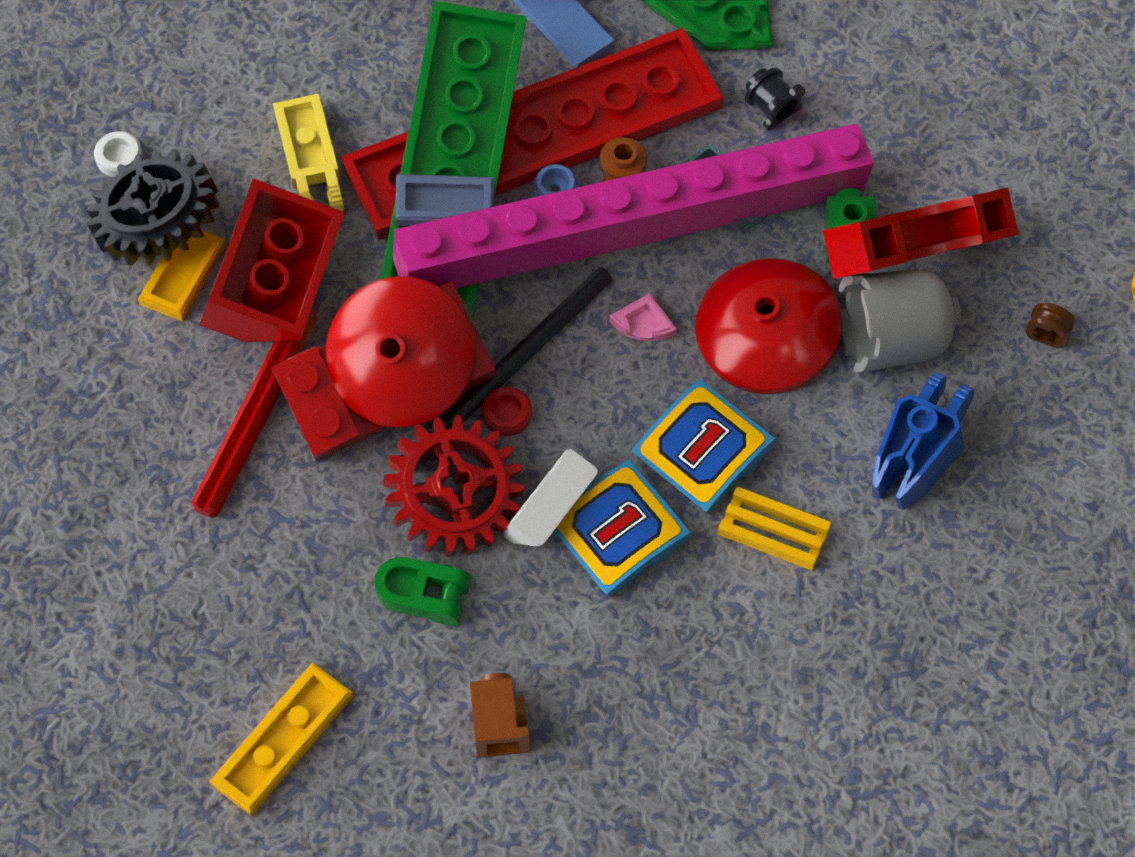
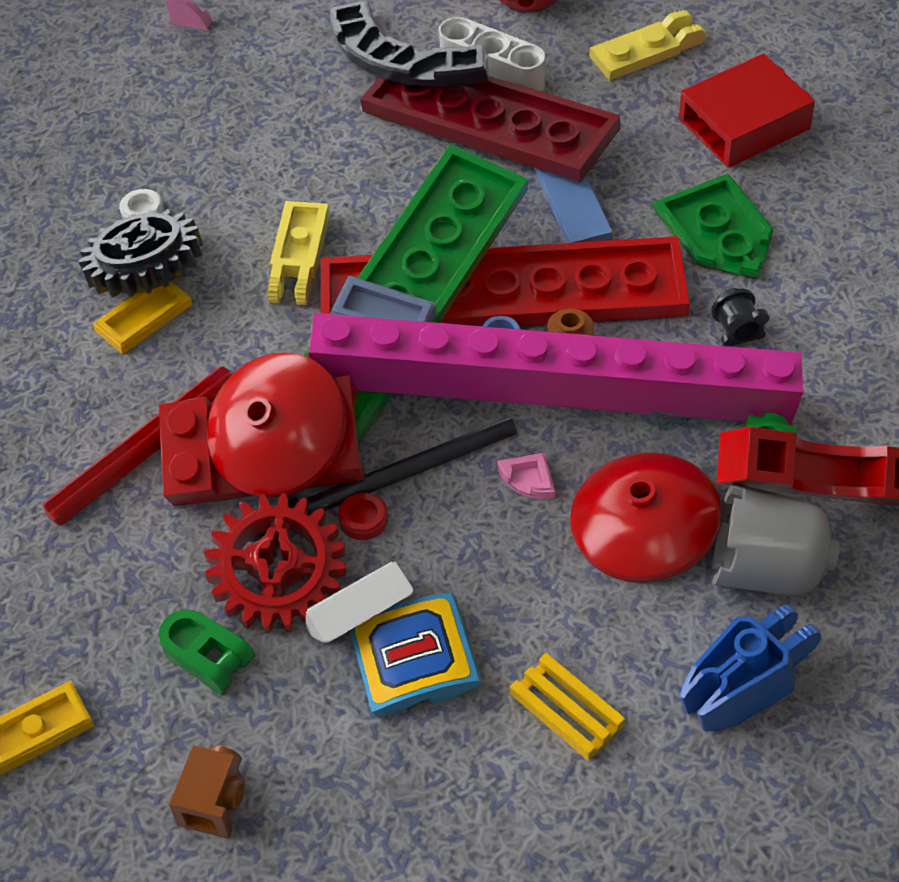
camera: 25 degrees right, 10 degrees down
(272, 266) = (208, 323): red slope -> none
(703, 445) = (531, 605): slope -> none

